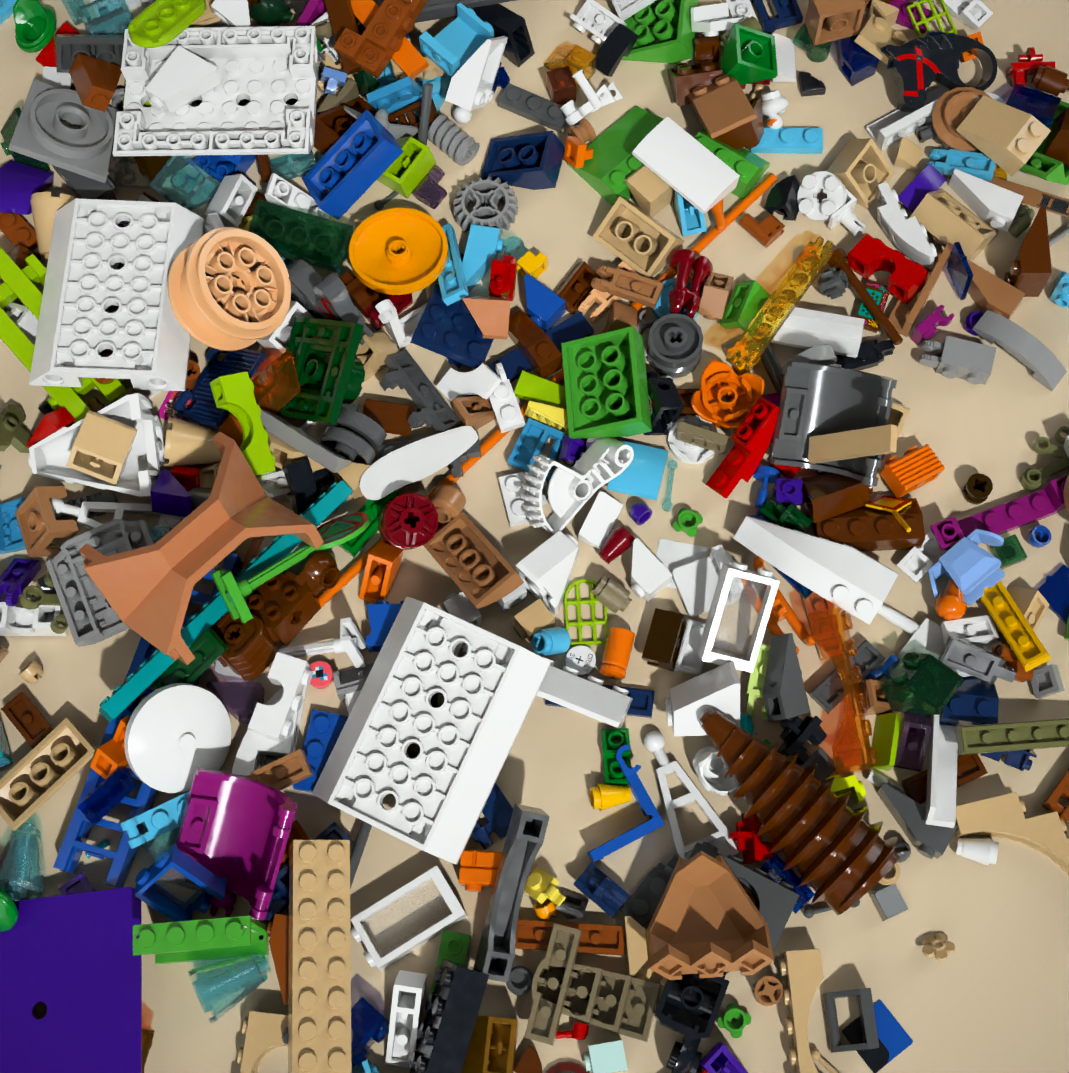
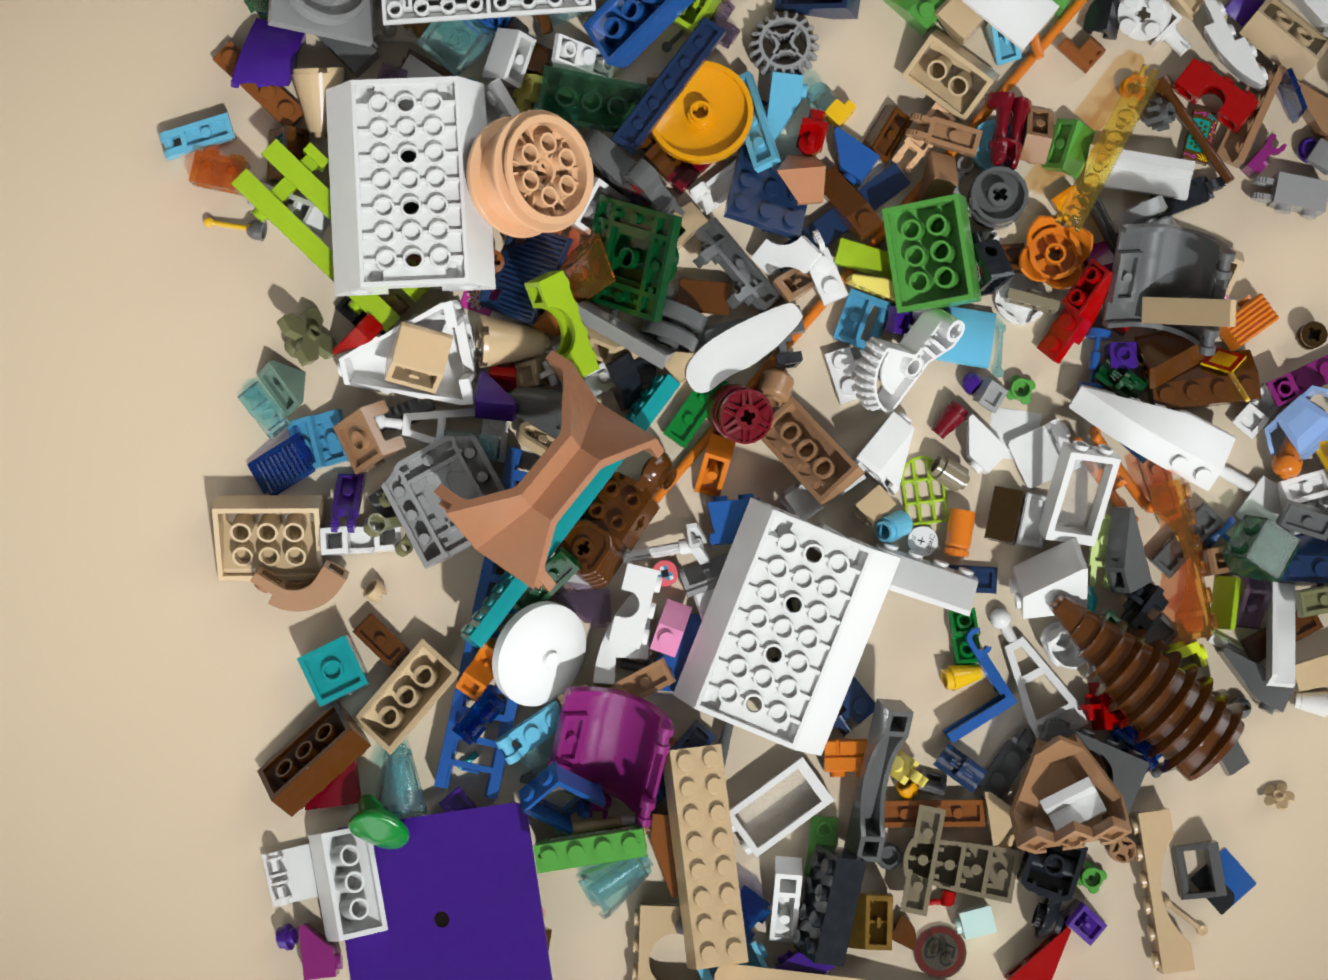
camera: 10 degrees left, 15 degrees up
(315, 725) = (671, 628): none -> bright pink slope
(332, 532) = (674, 430): bright green piece -> none
(370, 224) = (668, 85): none -> dark blue tile
(463, 477) = (790, 360): none -> black tile
(600, 520) = (932, 394): white slope -> none
(657, 524) = (990, 395): none -> light grey plate
(714, 924) = (1074, 803): none -> white panel

